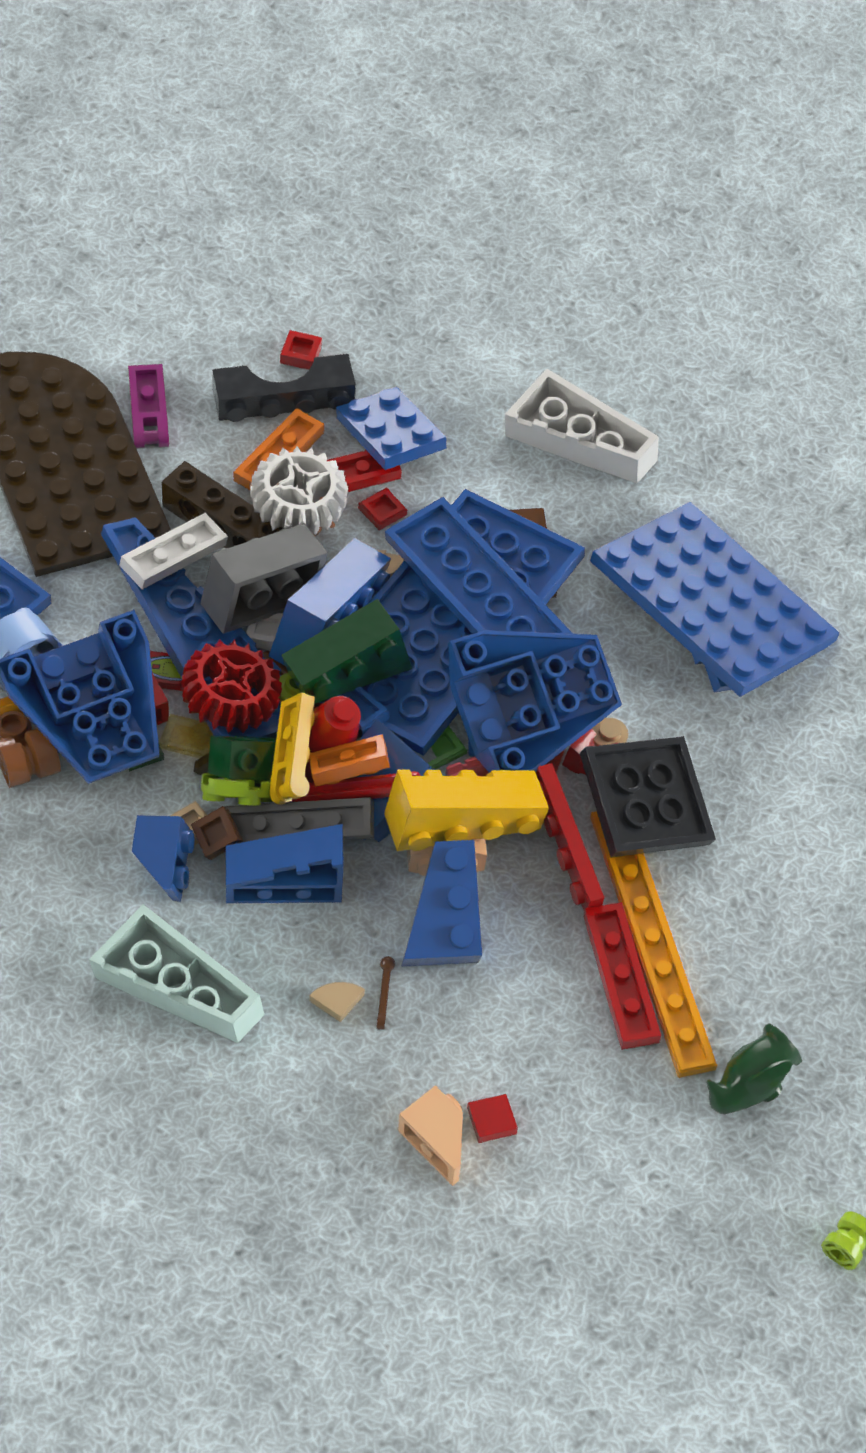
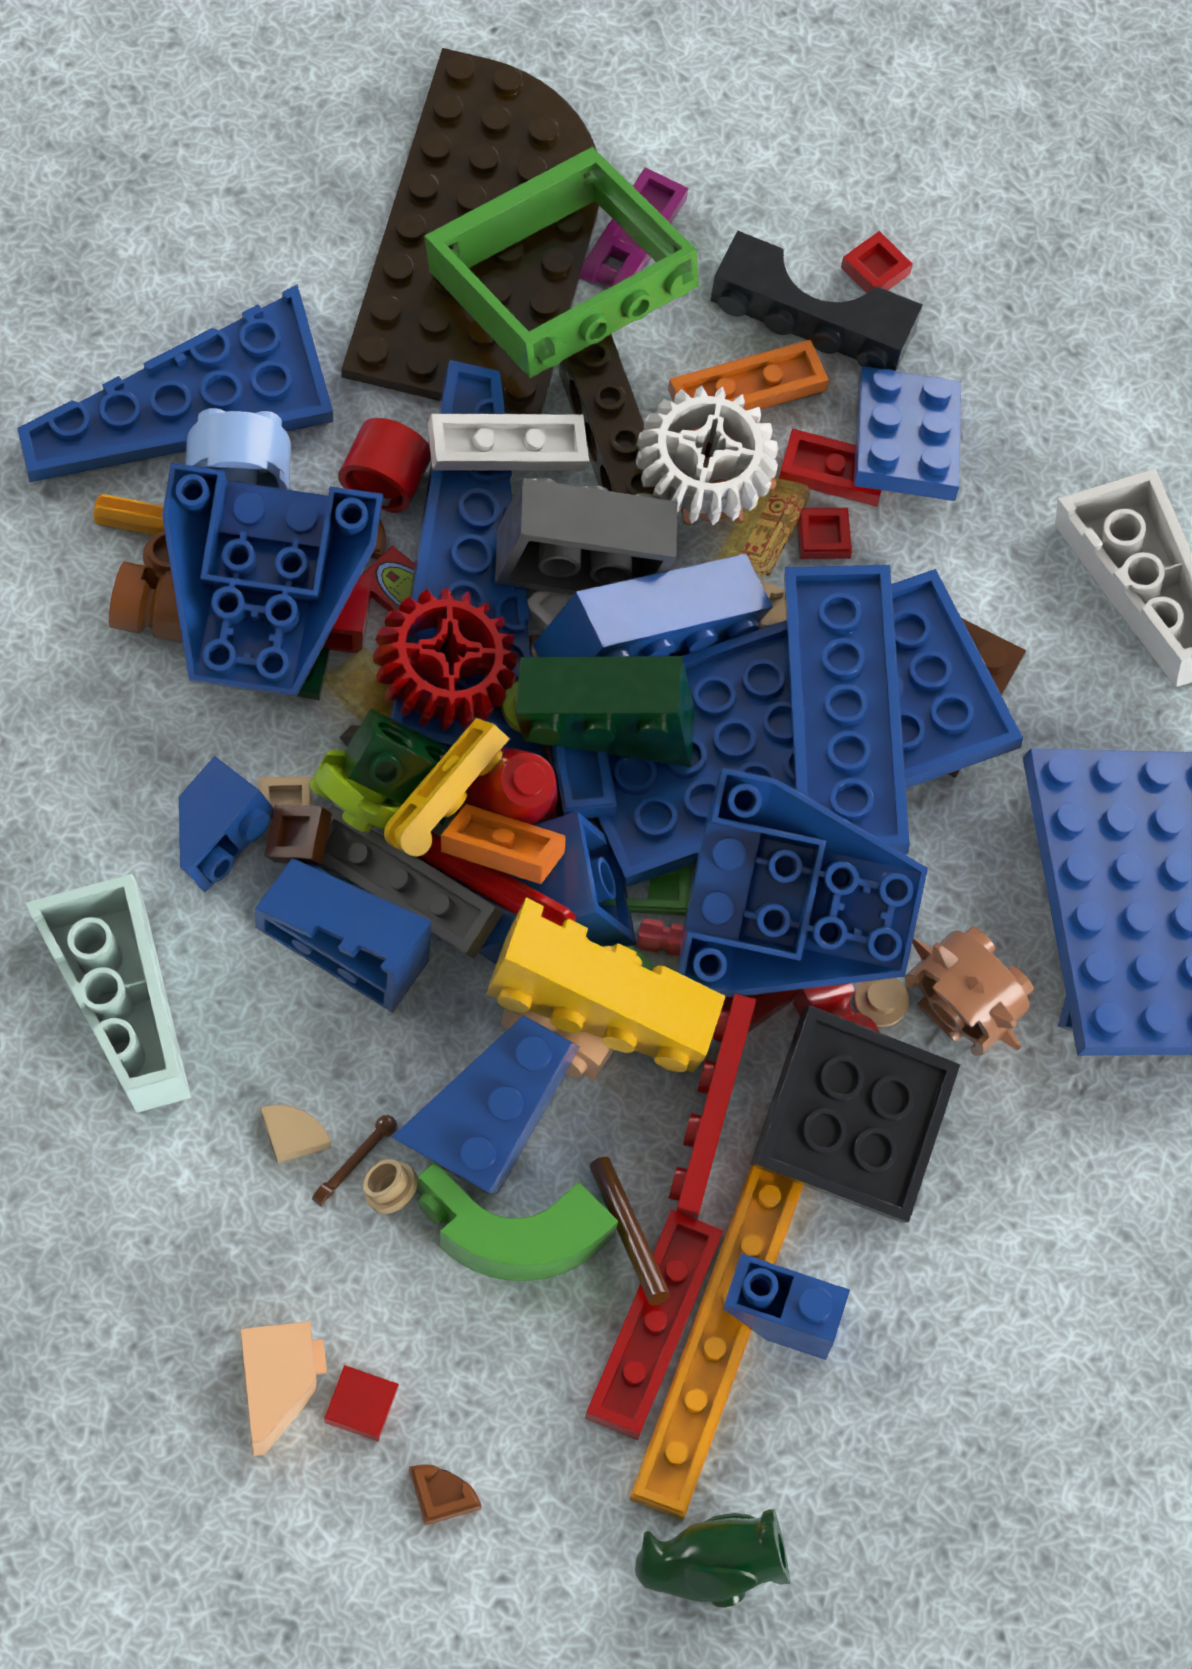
camera: 30 degrees right, 10 degrees up
(103, 598) = (386, 461): none -> red piece
(112, 383) = (536, 206): none -> bright green window
(351, 522) = (768, 526): none -> clear yellow tile
(417, 992) = (390, 1186): none -> tan plate
(508, 983) = (515, 1247): none -> bright green arch
(570, 933) = (629, 1231): none -> reddish brown bar
(574, 1138) = (442, 1493): none -> dark orange tile
(659, 695) = (970, 989): none -> nougat brick
(690, 918) = (786, 1305): none -> blue slope

